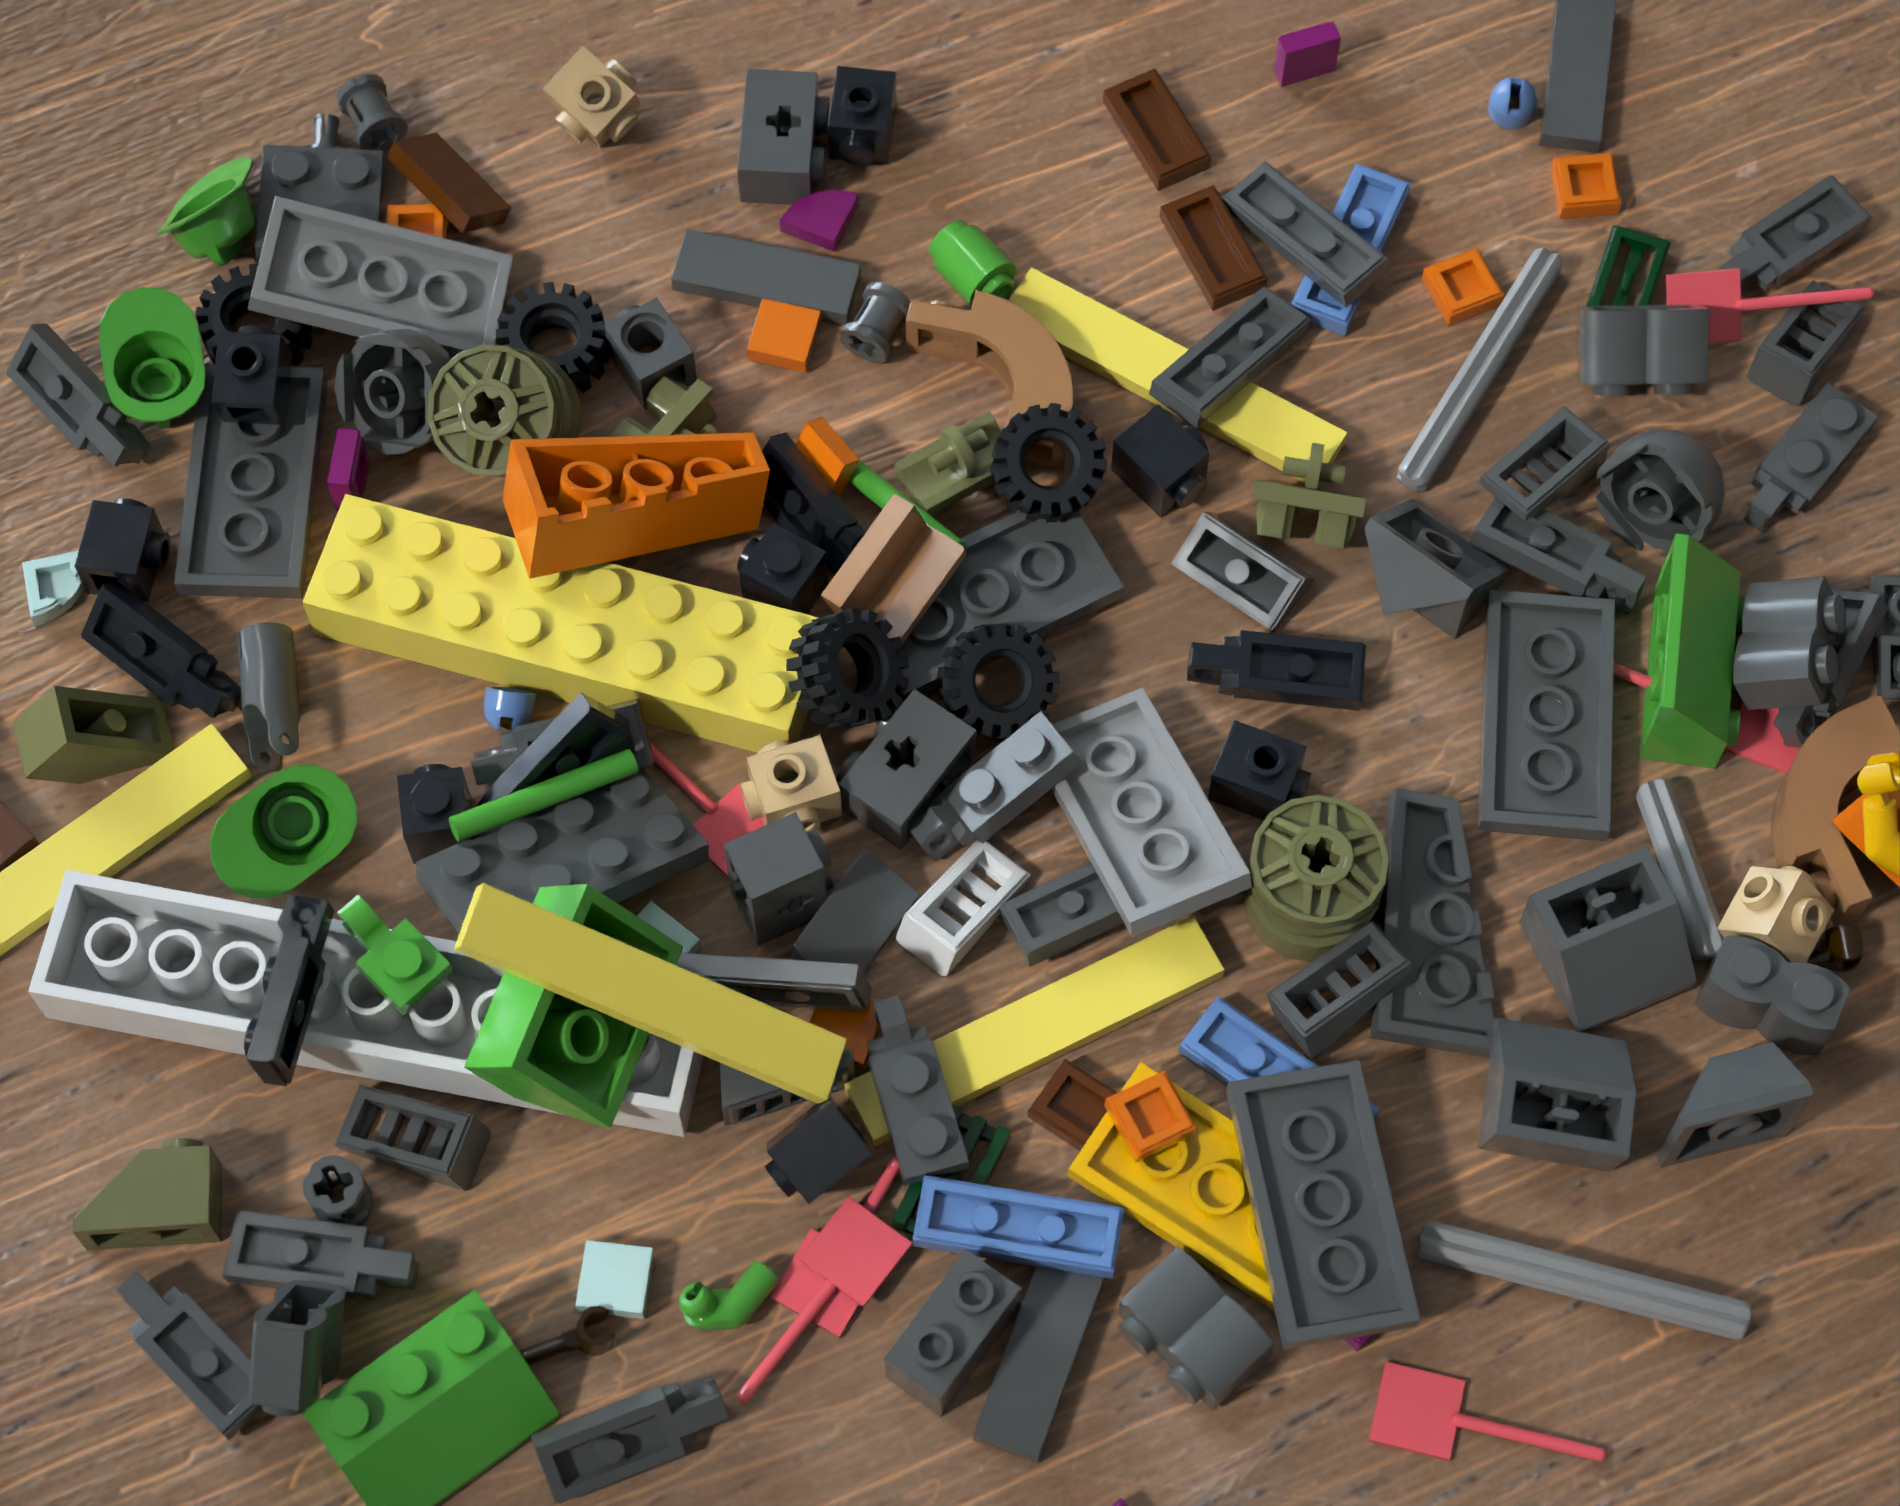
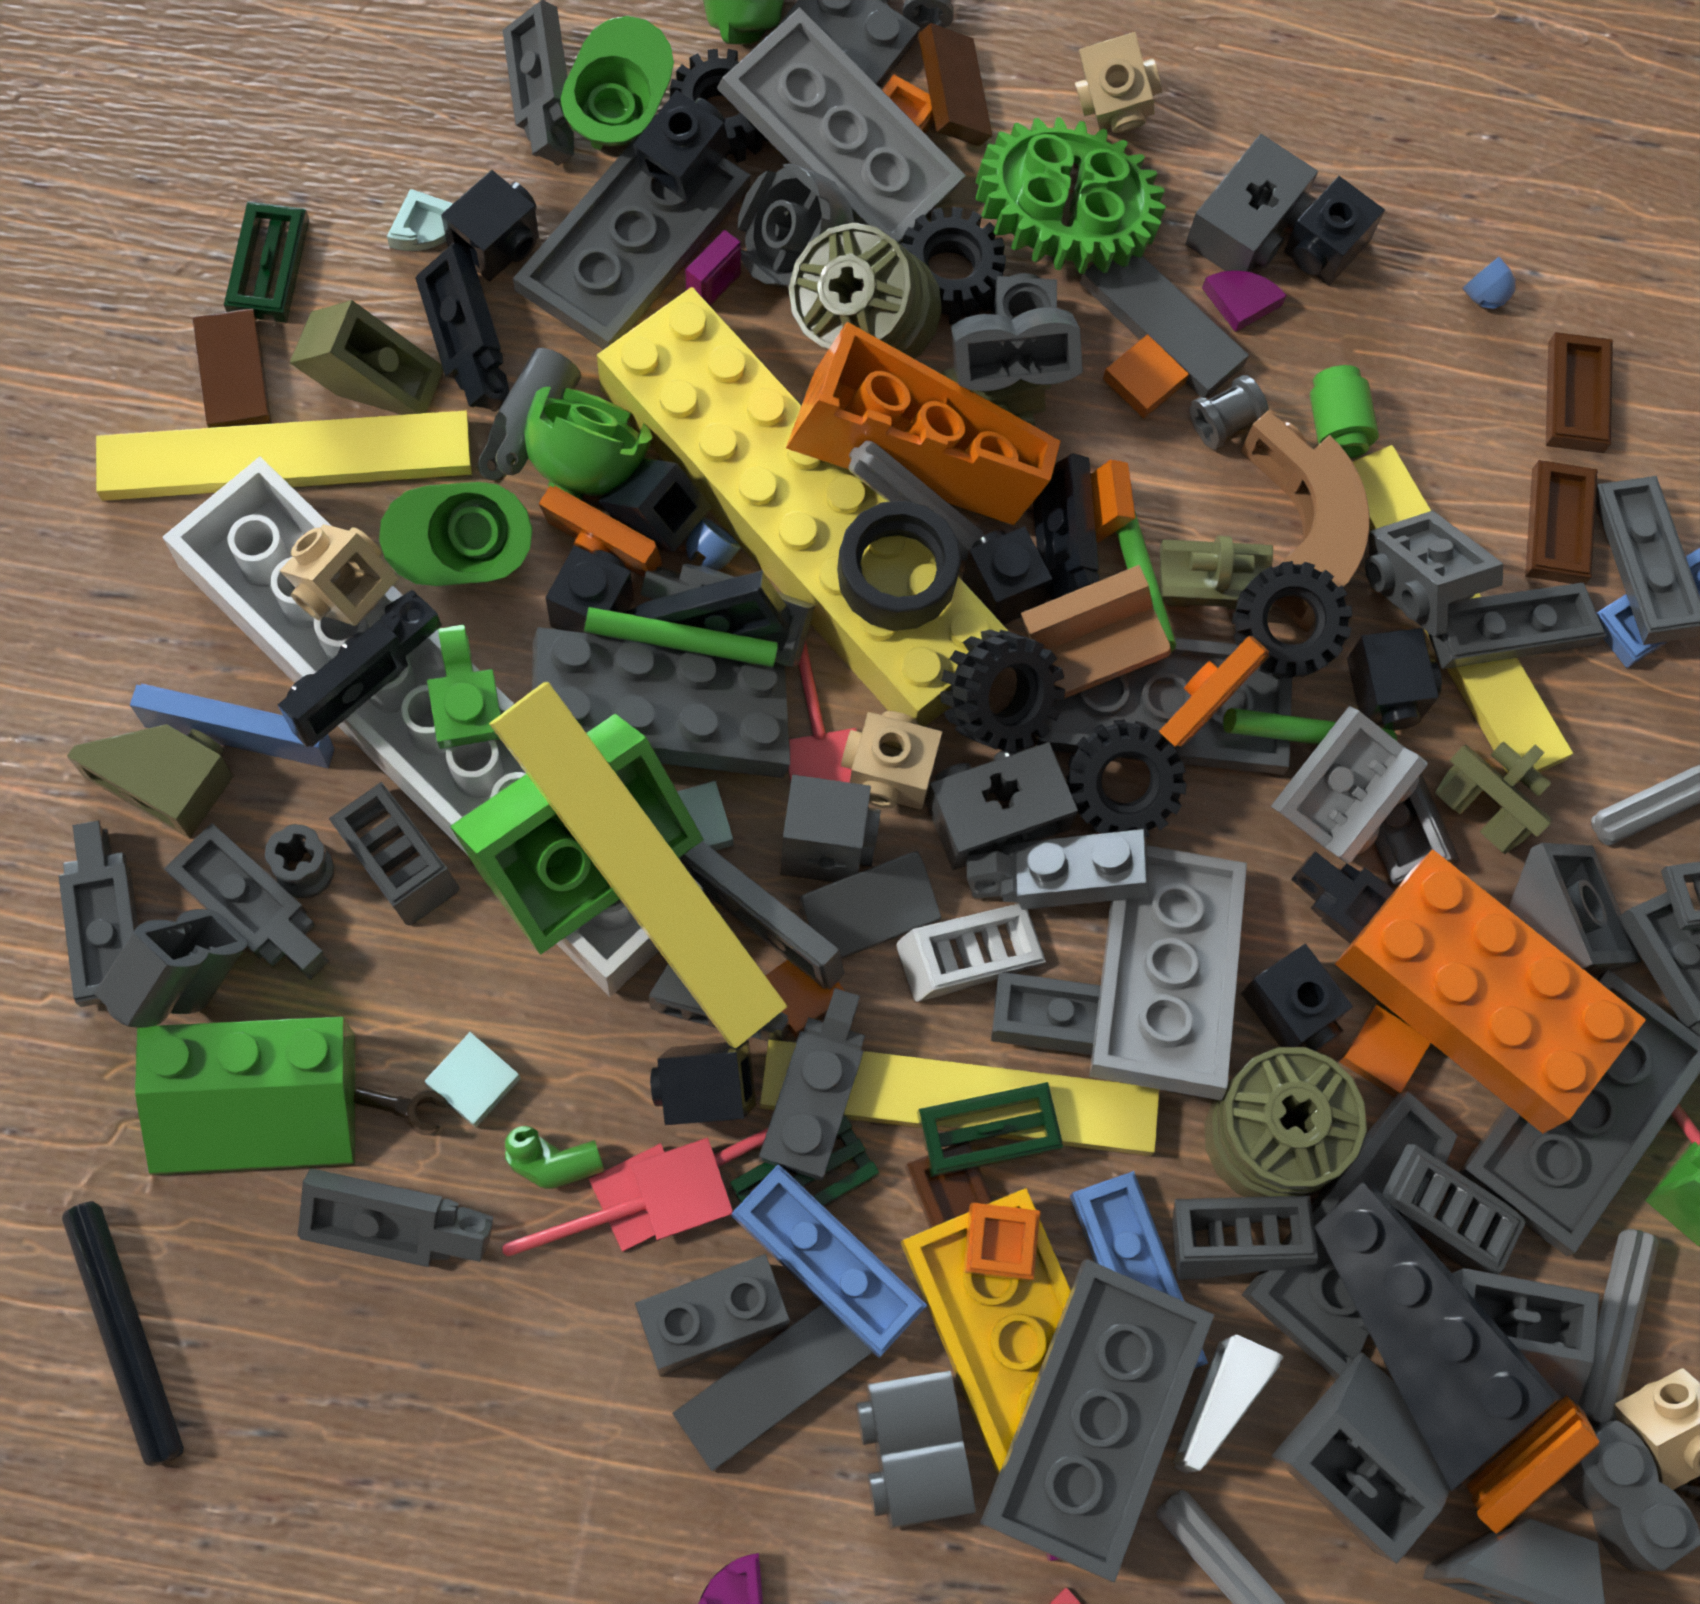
camera: 25 degrees right, 5 degrees up
(194, 1117) = (227, 724): none -> medium blue tile
(218, 921) = (337, 574): none -> tan brick
(340, 687) = (583, 442): none -> bright green cylinder
(403, 753) = (599, 531): none -> orange plate
(439, 699) = (658, 503): none -> black brick
(580, 234) = (1028, 183): none -> bright green gear
(665, 557) = (897, 483): none -> light grey axle
(678, 366) = (1033, 346): none -> dark grey brick
(678, 575) = (909, 521): none -> black tyre
(1021, 560) = (1211, 690): none -> orange plate
(1025, 82) = (1492, 285): none -> medium blue hinge
(1041, 1074) = (936, 1141): none -> dark green tile
(1121, 546) = (1279, 726): none -> bright green bar
(1128, 351) = (1426, 566): none -> dark grey bracket
(1185, 570) = (1350, 785): none -> light grey bracket
(1356, 768) = (1385, 1051): none -> orange tile
(1406, 665) = (1490, 993): none -> orange brick
(1409, 1110) = (1230, 1387): none -> white slope
(1530, 854) = (1488, 1229): none -> dark grey slope
(1552, 966) = (1442, 1349): none -> black wing
(1684, 1015) = (1532, 1464): none -> orange tile

